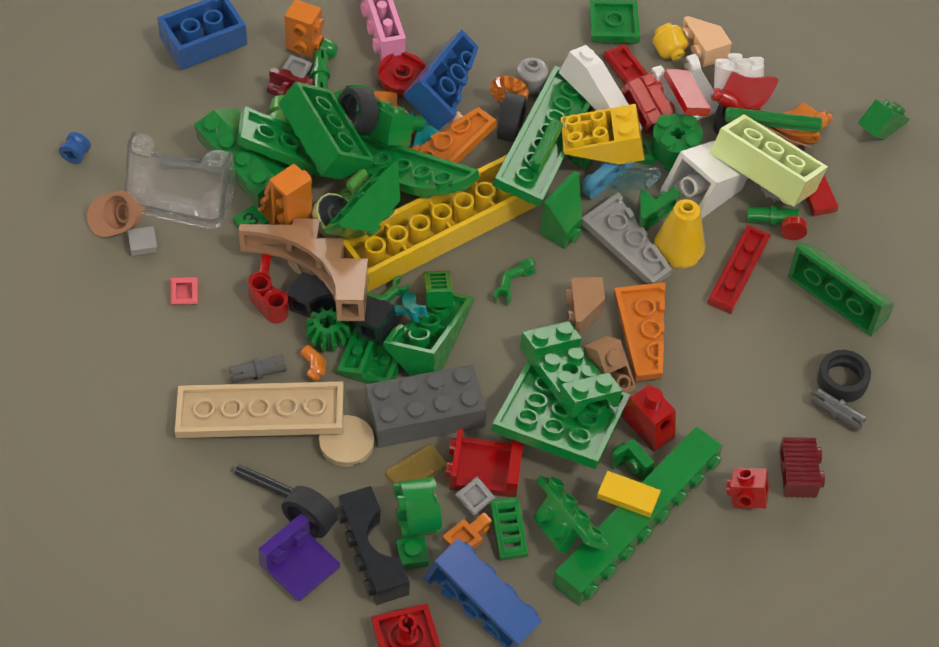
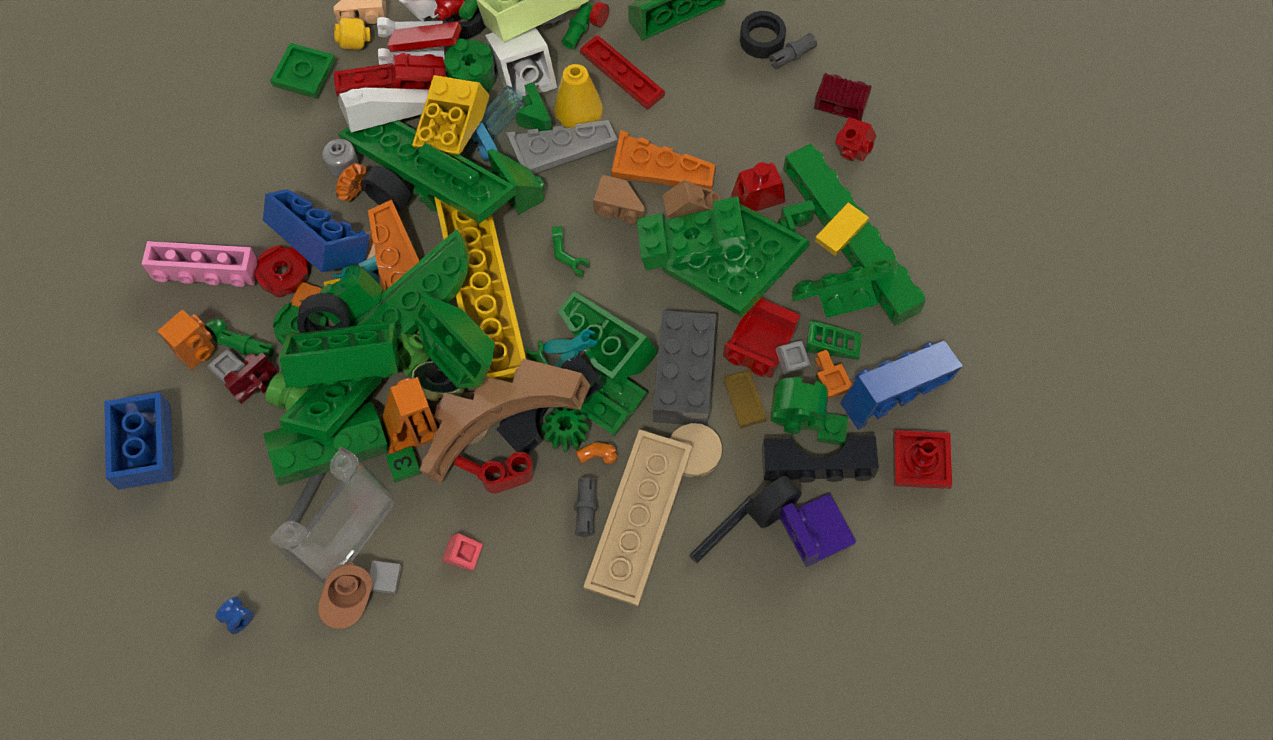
camera: 65 degrees left, 10 degrees up
(438, 289) = (569, 324): green slope -> none

